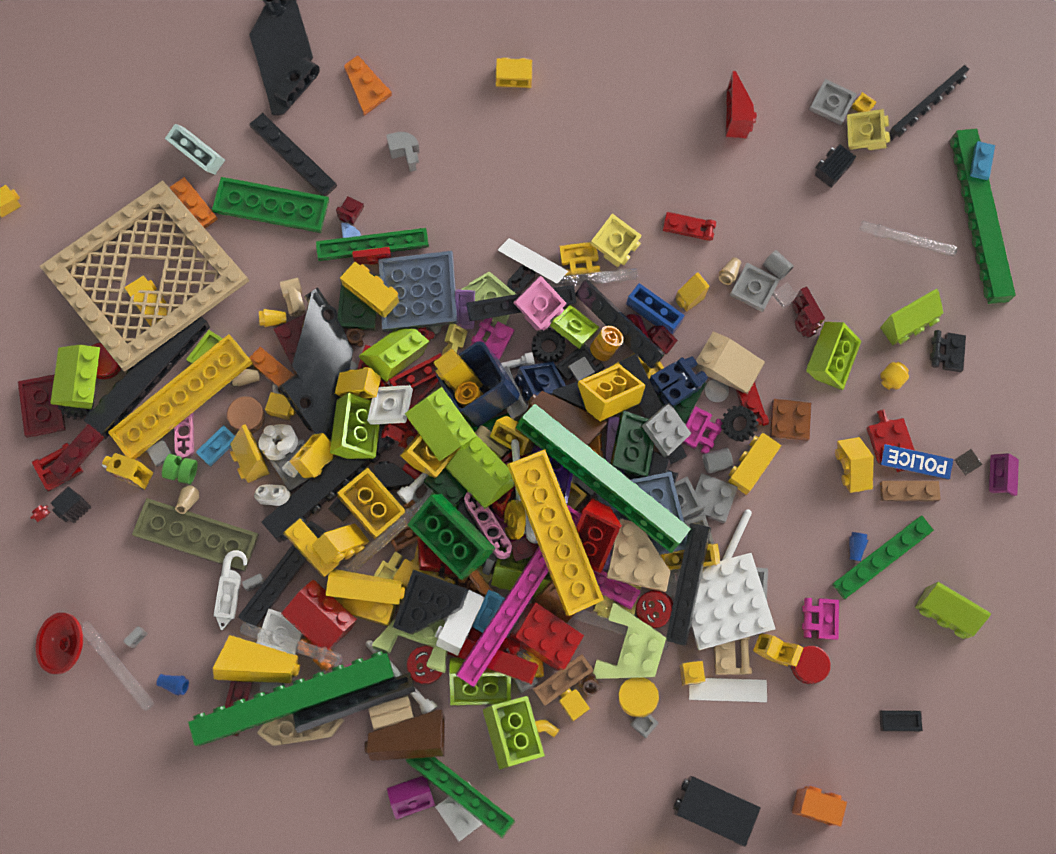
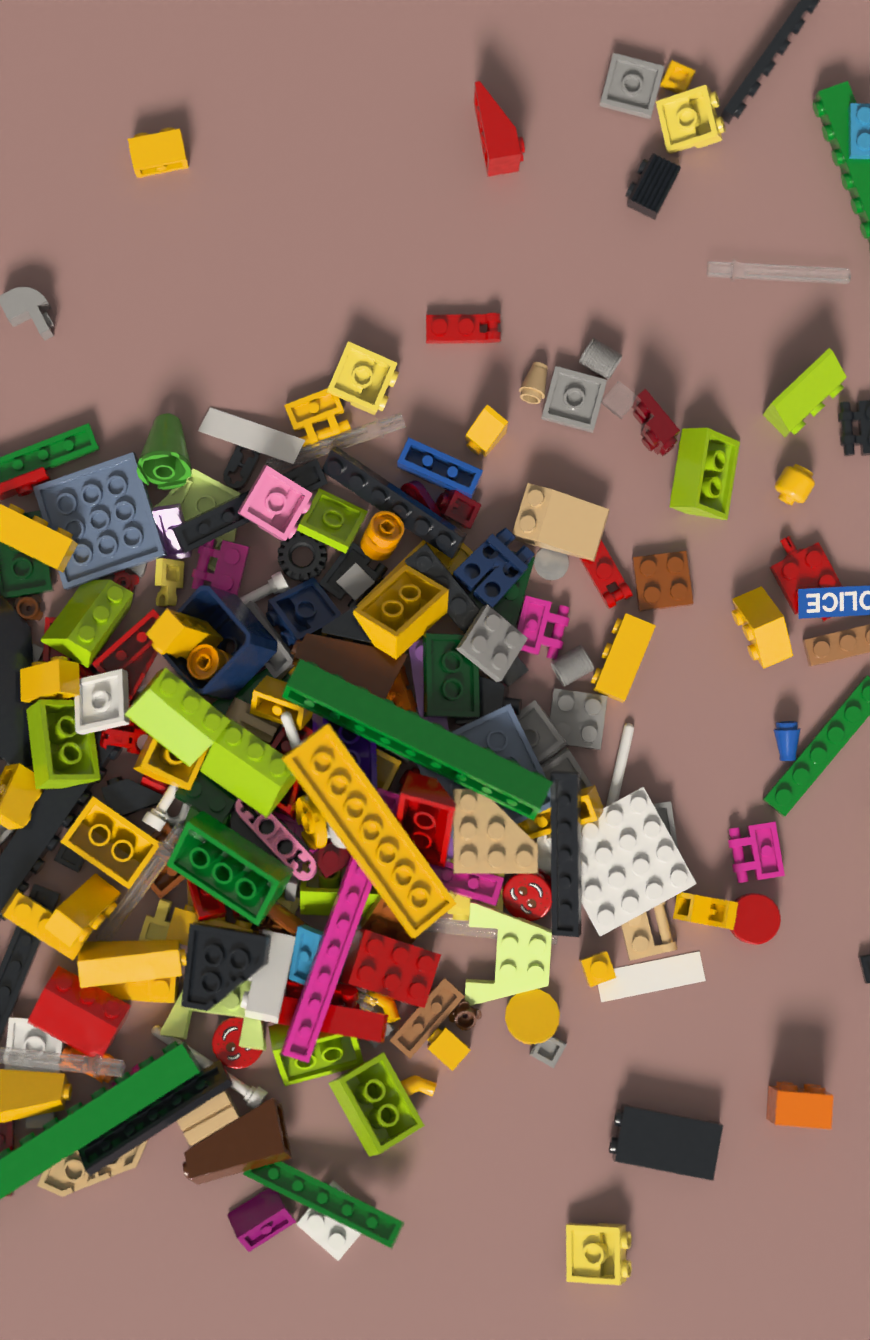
camera: 10 degrees left, 10 degrees up
(472, 258) = (165, 454): none -> bright green cone
(731, 416) = (577, 612): black tyre -> none

